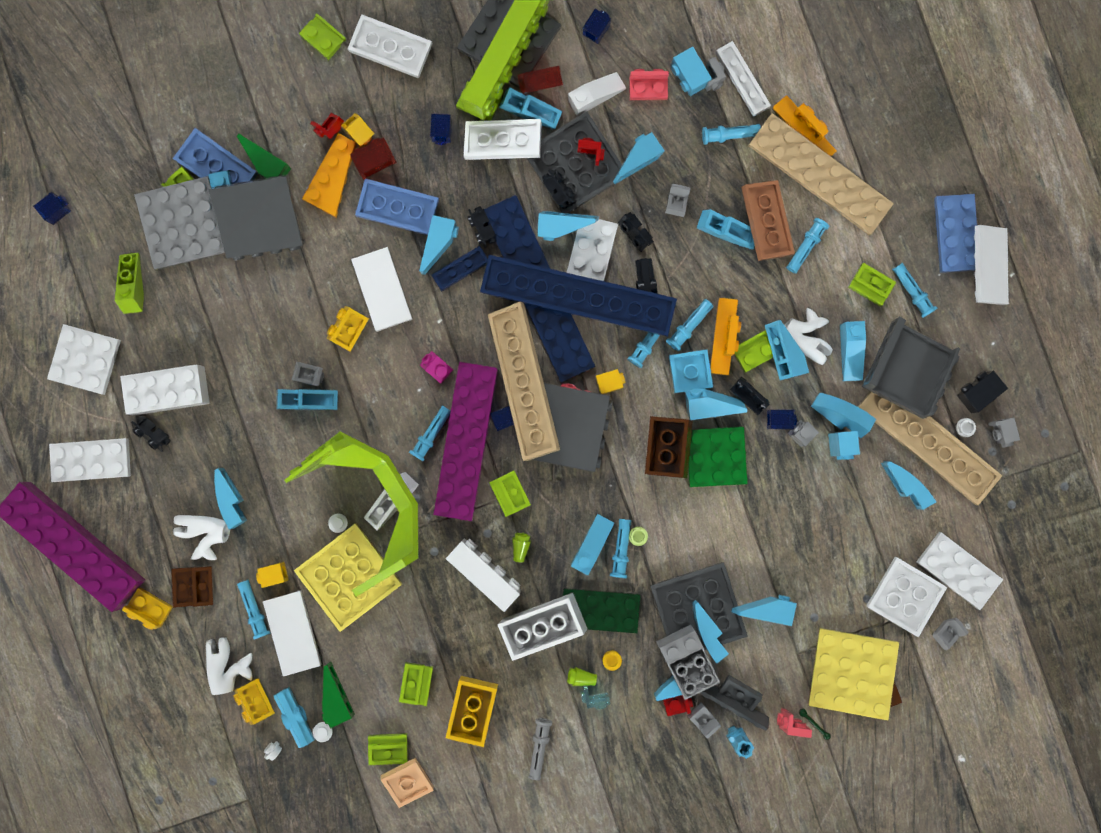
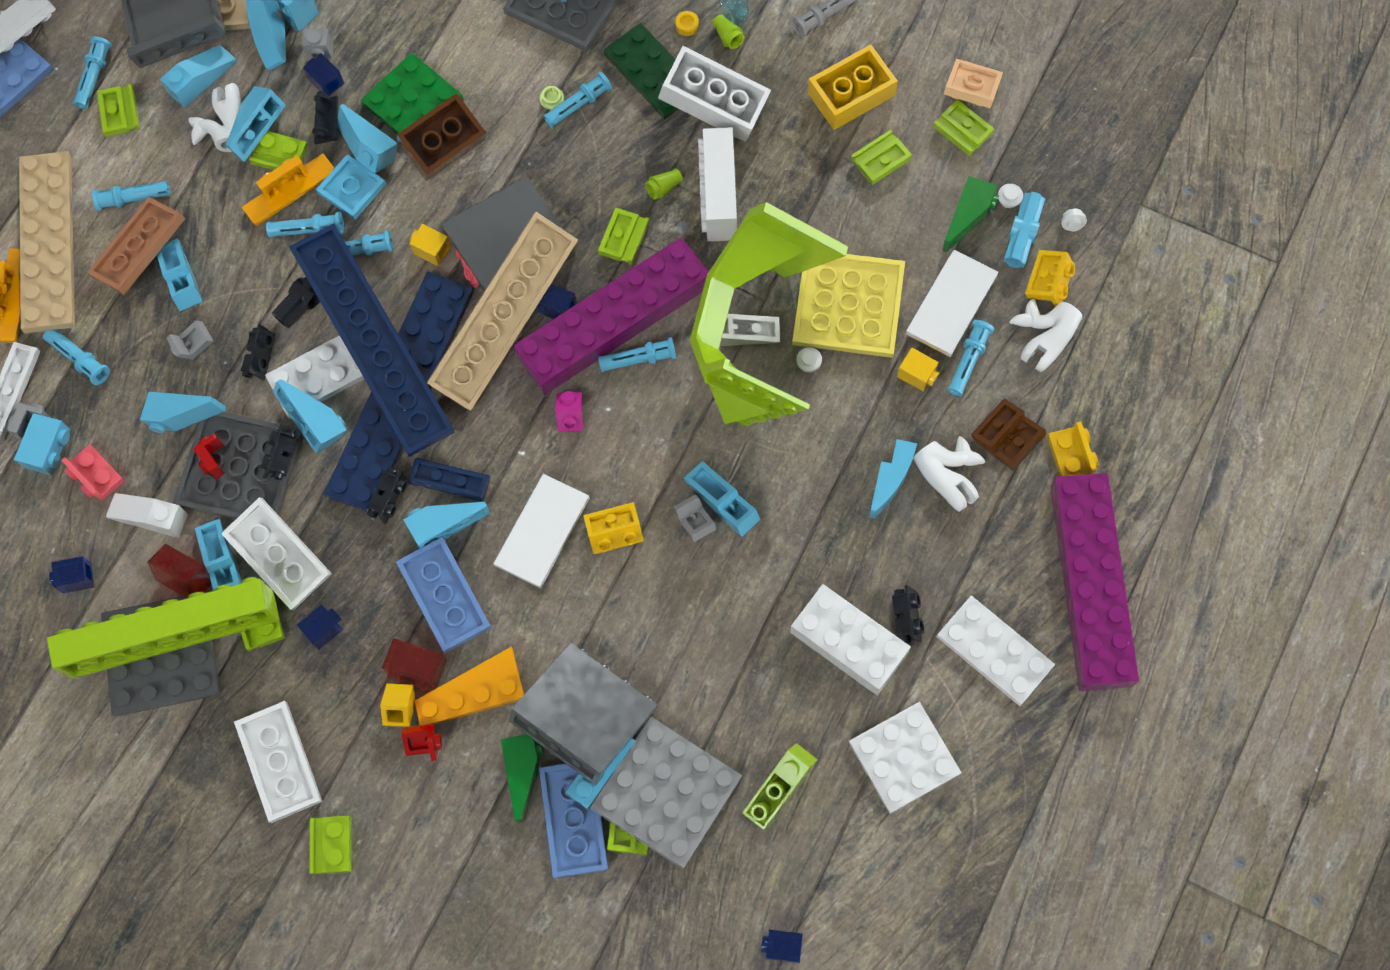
camera: 130 degrees left, 15 degrees down
(592, 544) = (601, 125): medium azure slope -> none

